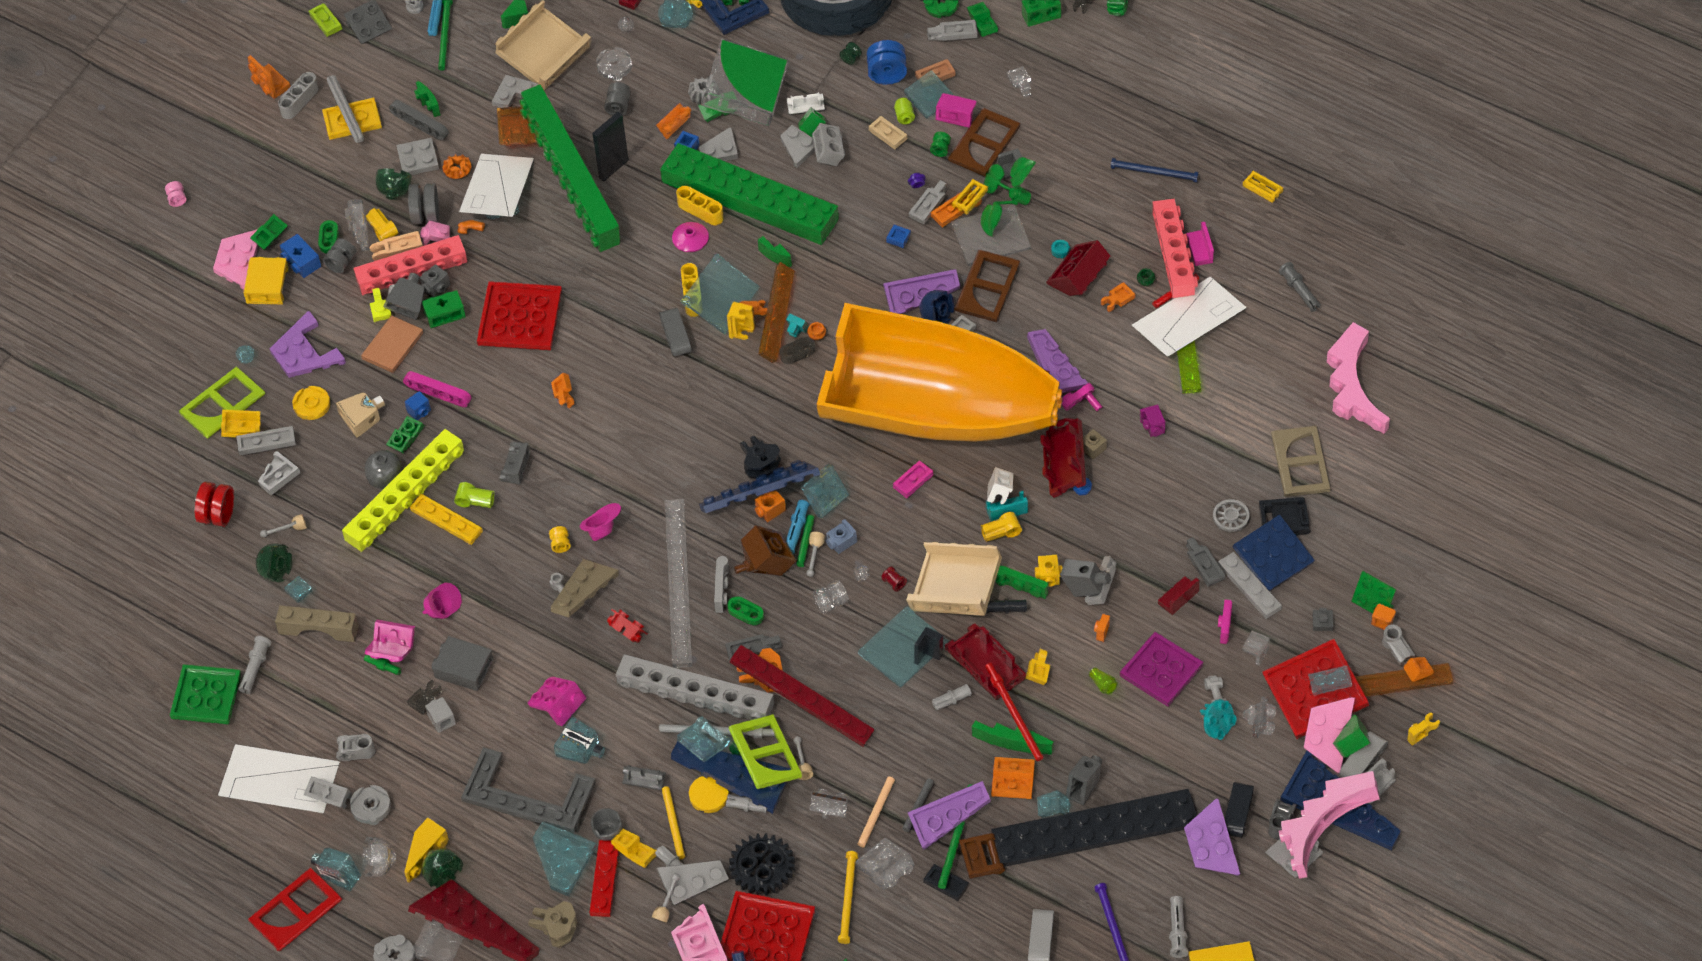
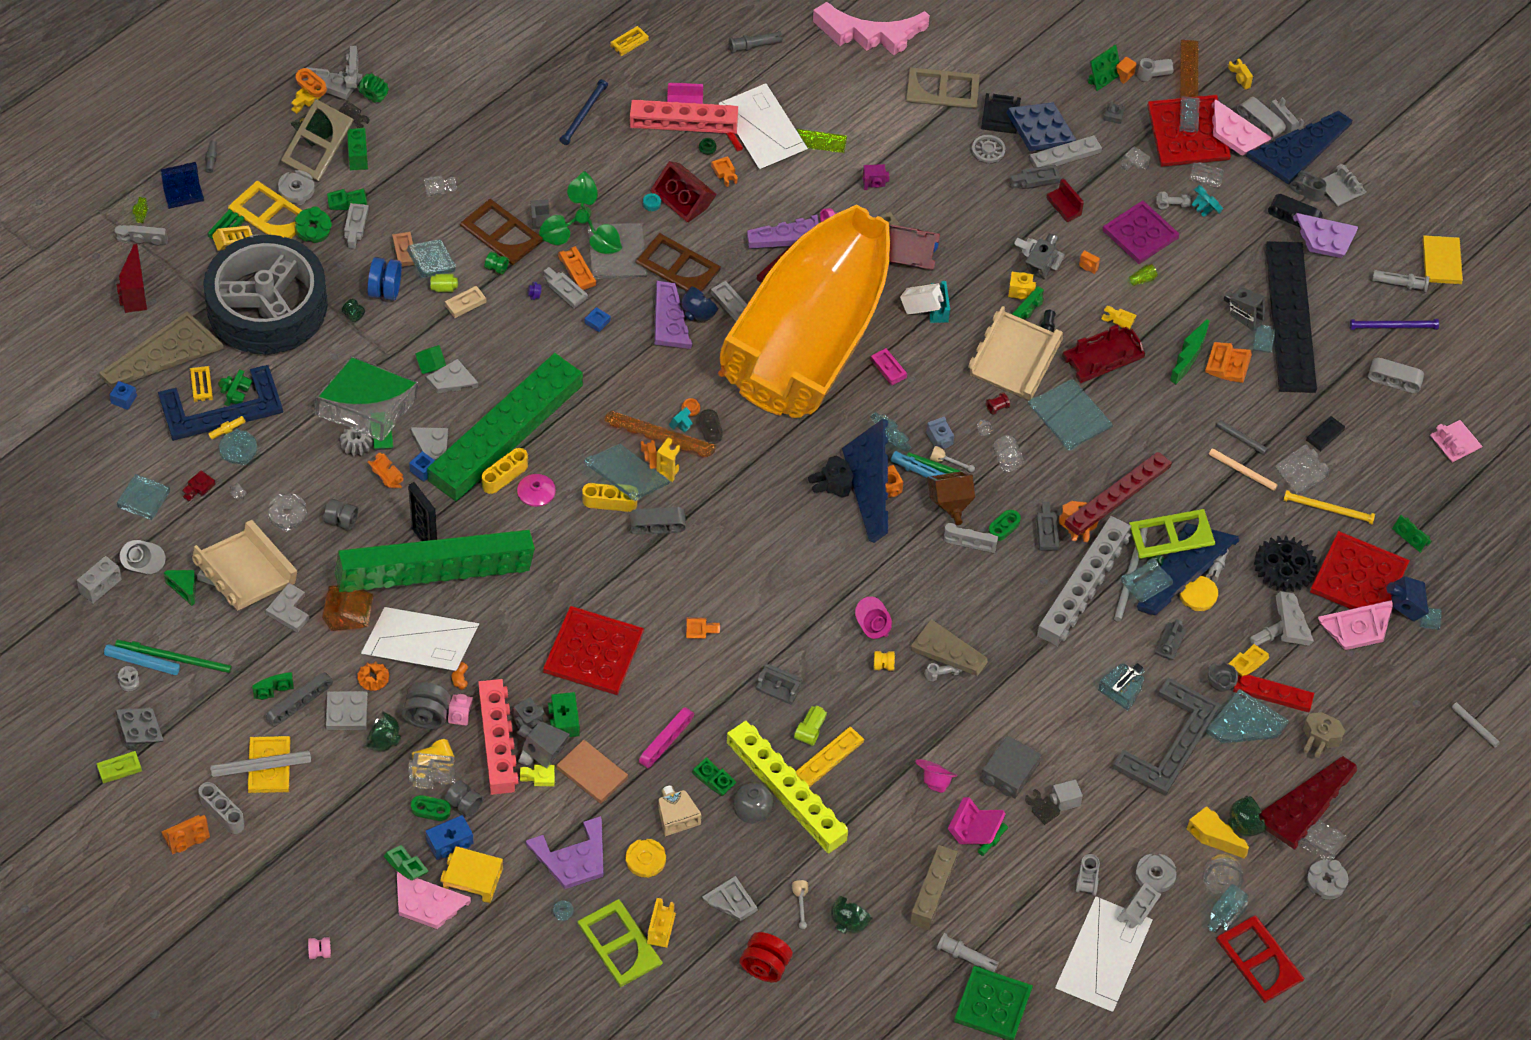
camera: 85 degrees left, 0 degrees up
(266, 440) = (686, 905): light grey plate -> none
(298, 589) = (884, 900): clear light blue plate -> none
(395, 245) = (464, 744): light nougat hinge -> none
(417, 406) = (684, 757): blue plate -> none
(558, 698) = (1067, 695): dark pink bracket -> none
(620, 620) = (1004, 619): red hinge -> none
(661, 913) = (1323, 650): hinge -> none
(673, 822) = (1223, 627): yellow bar -> none
(678, 583) = (956, 574): clear plate -> none
(776, 254) = (590, 418): green slope -> none
(802, 104) = (403, 359): white hinge -> none
(805, 768) = (1154, 513): hinge -> none
(828, 144) = (467, 349): light grey brick -> none
(829, 804) = (1234, 500): clear hips -> none
(928, 643) = (1087, 387): black panel -> none
(943, 815) = (1263, 414): medium lavender wing -> none
(951, 697) = (1135, 387): light grey axle -> none
(951, 854) = (1249, 401): green bar -> none
(955, 110) = (459, 241): dark pink panel -> none
(973, 201) = (571, 253): yellow tile -> none
(975, 858) = (1305, 401): reddish brown plate -> none
(997, 681) = (1138, 343): red bar -> none
(1006, 525) = (961, 309): yellow piece -> none
(1224, 621) = (1103, 176): dark pink plate -> none
(1339, 797) = (1322, 155): bright pink arch -> none
(1352, 737) = (1249, 111): green slope -> none
(1418, 668) = (1184, 59): orange slope -> none

